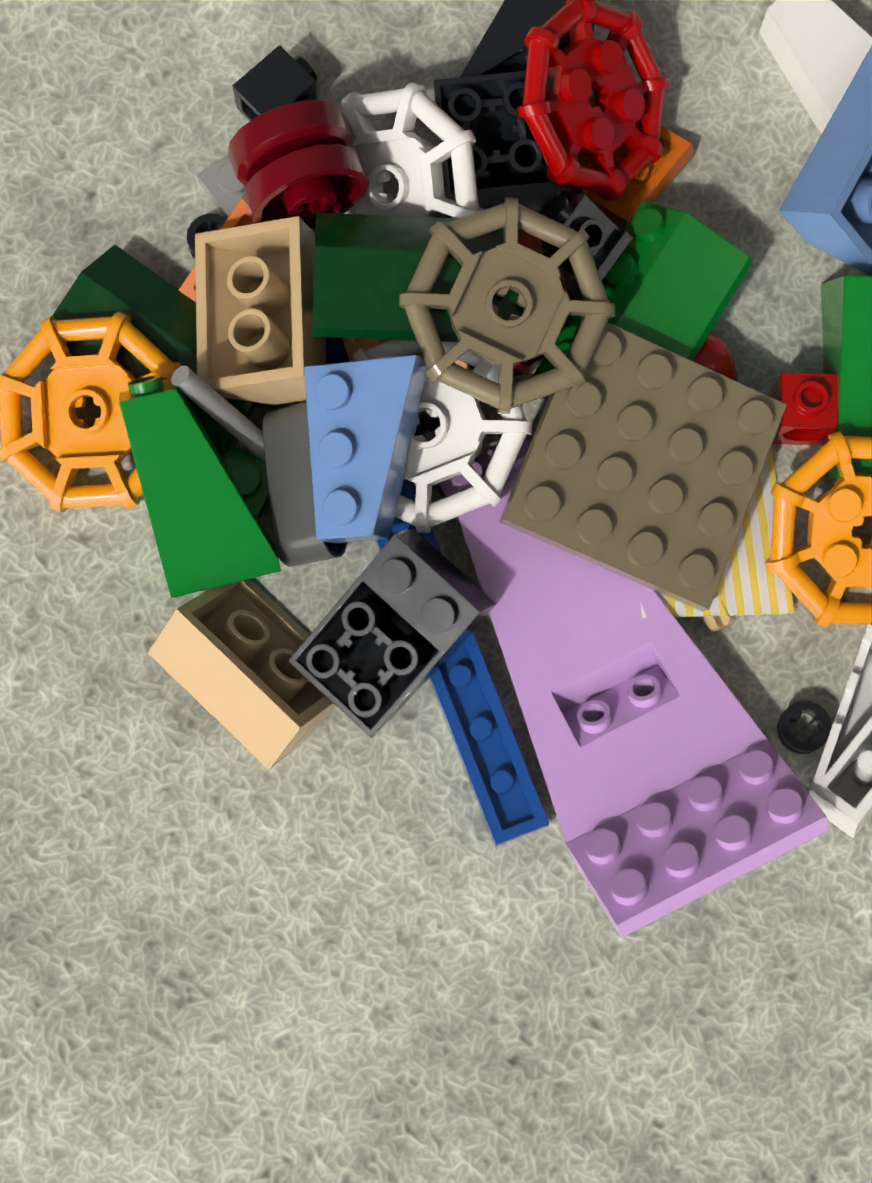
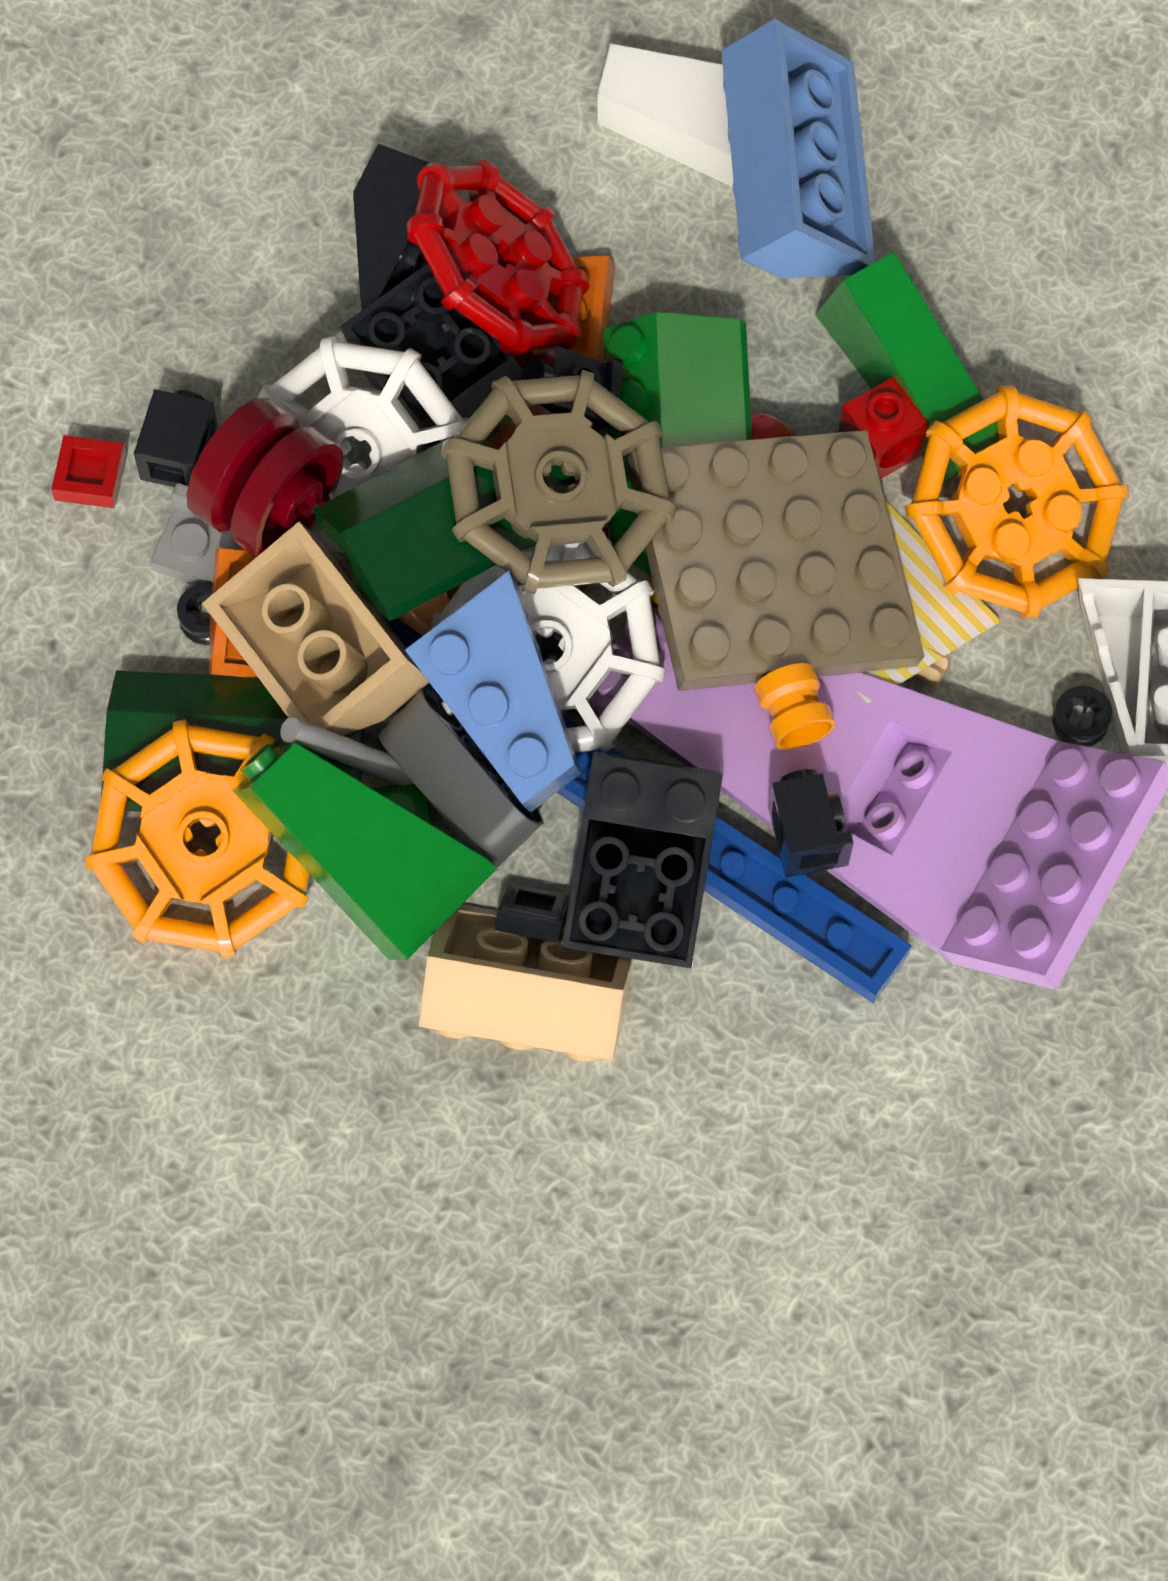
camera: 30 degrees left, 10 degrees down
(198, 79) = (88, 471): none -> red plate
(288, 617) = (532, 912): none -> black tile
(527, 685) = (808, 824): none -> black brick
(580, 588) = (794, 705): none -> light orange wheel

